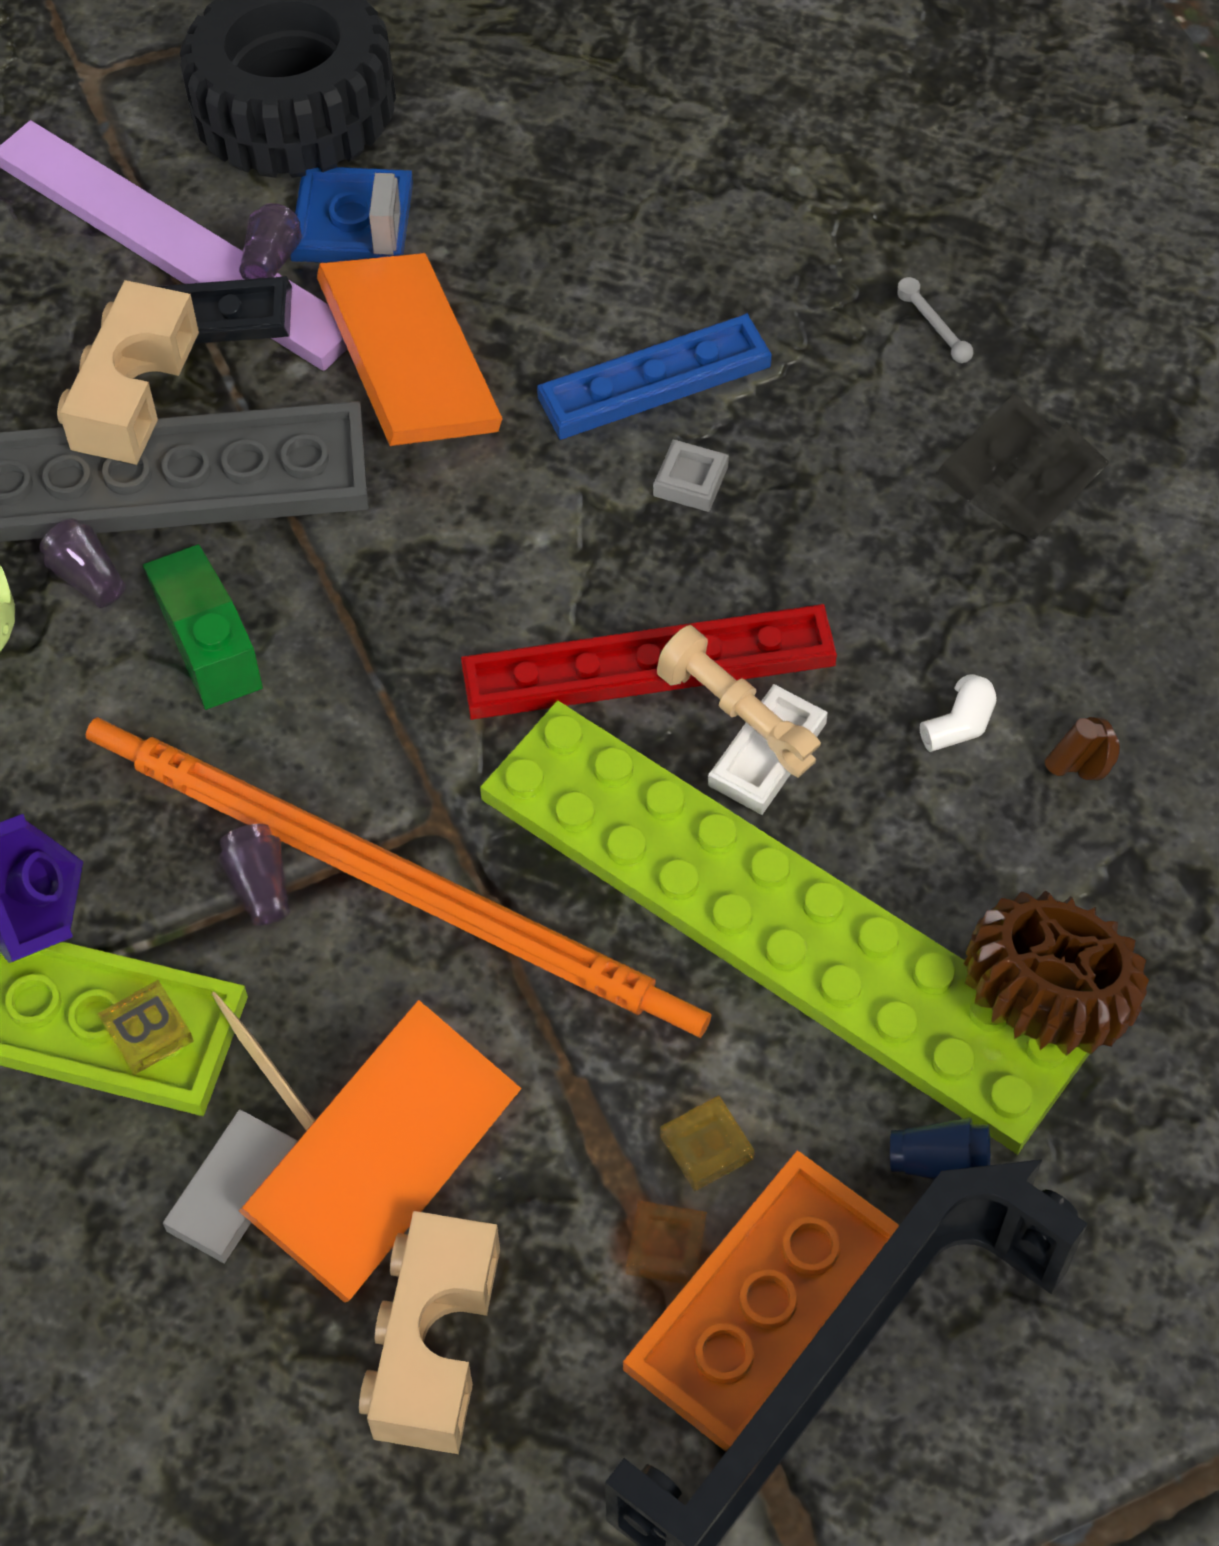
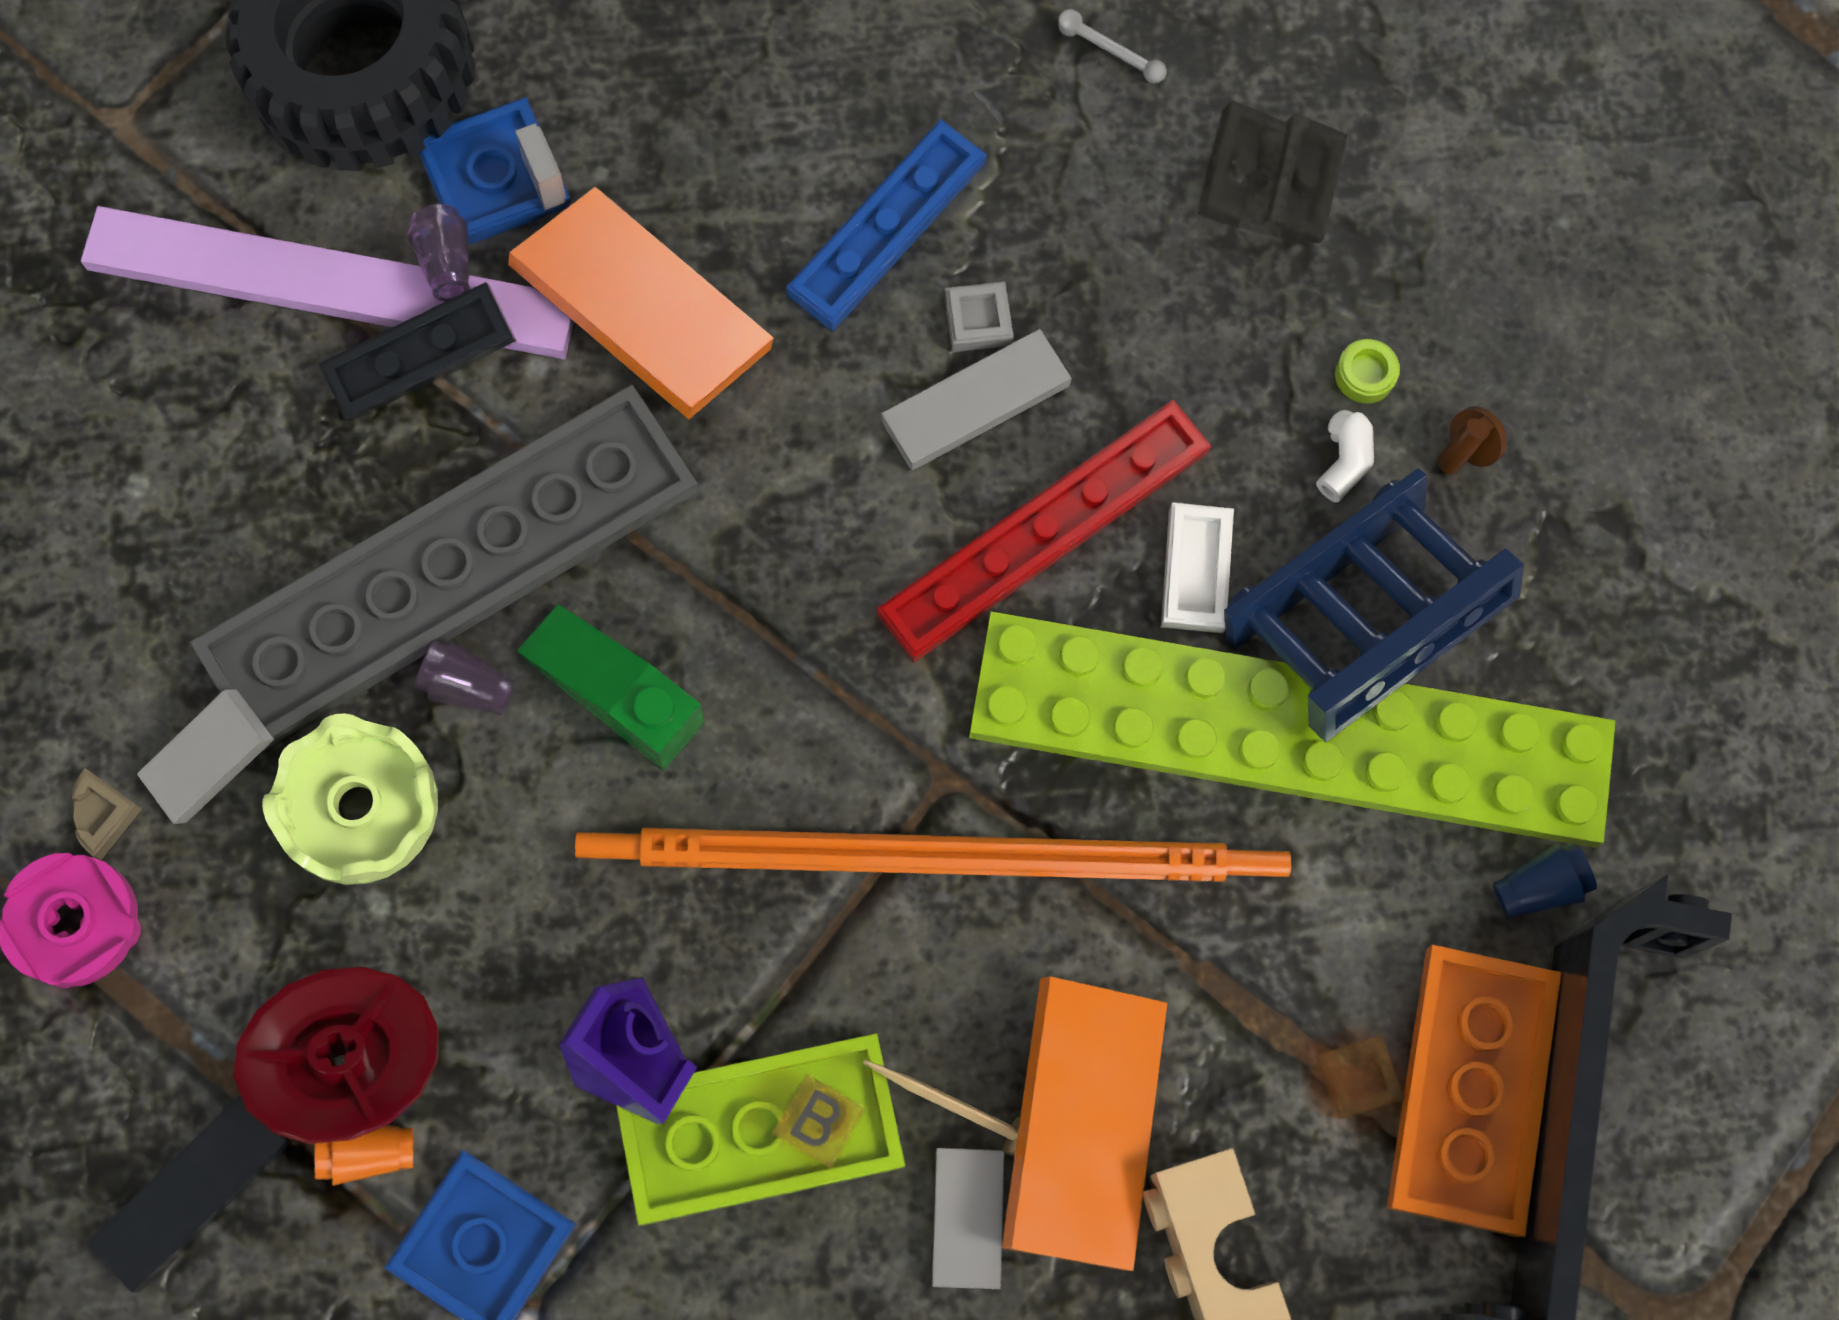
camera: 35 degrees left, 15 degrees up
(139, 333) = (386, 409): tan arch -> none
(256, 870) = (819, 916): clear purple cone -> none
(649, 536) = (975, 399): none -> light grey tile
(687, 656) = (1228, 562): tan piece -> none
(707, 1143) = (1345, 970): clear yellow tile -> none
(911, 876) = (1385, 659): none -> dark blue fence
(1020, 657) = (1367, 371): none -> lime tile
(1055, 972) = (1565, 677): reddish brown gear -> none

